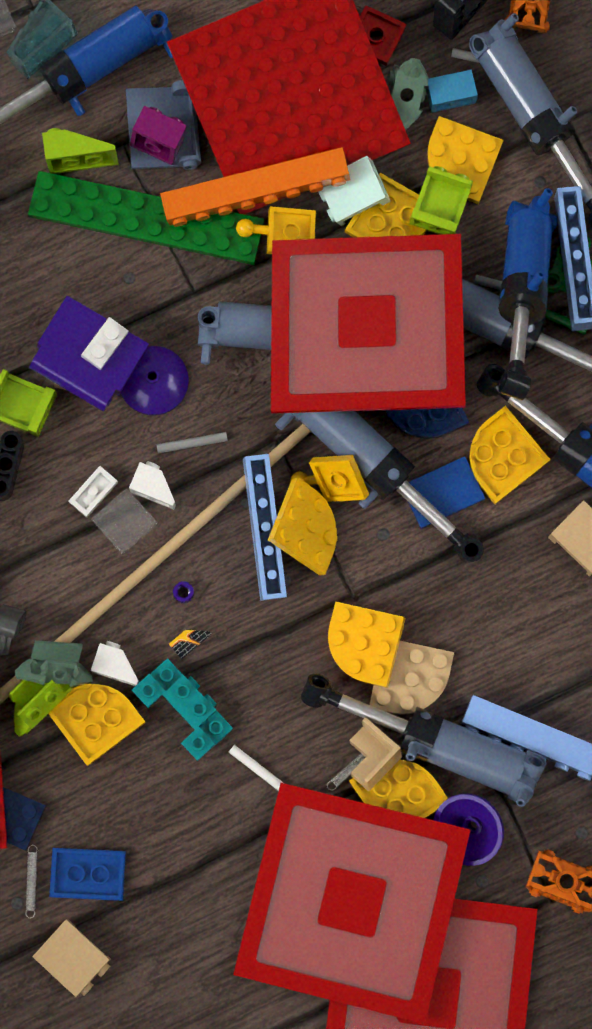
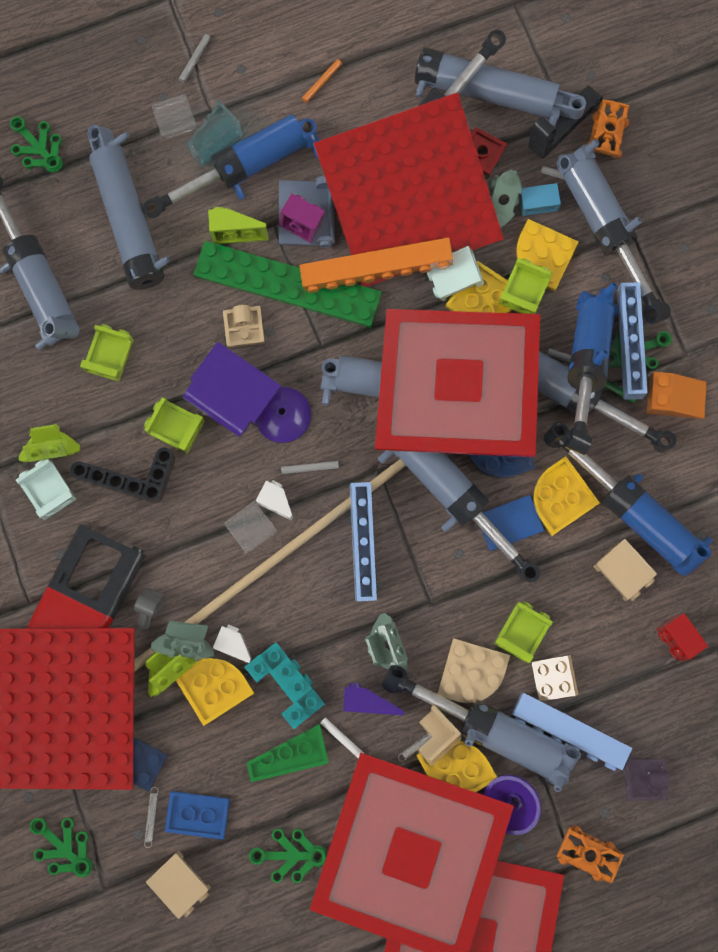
camera: 10 degrees right, 0 degrees up
(93, 491) = (227, 501): white plate -> none
(96, 274) = (243, 326): none -> tan plate
(104, 343) = (244, 382): white plate -> none
(180, 585) = (293, 582): dark purple axle -> none
(188, 641) = (294, 629): sticker -> none
(201, 792) = (294, 755): none -> green wing
(207, 913) = (292, 855): none -> green plant
(281, 719) = (364, 701): none -> dark purple slope
(282, 225) = (395, 297): yellow plate -> none
(300, 633) = (383, 631): none -> sand green piece
(305, 527) = (396, 544): yellow plate -> none
(337, 478) = (424, 505): yellow plate -> none
(365, 642) = (437, 642): yellow plate -> none
(468, 622) = (523, 631): none -> lime panel
(510, 675) = (555, 678): none -> plate

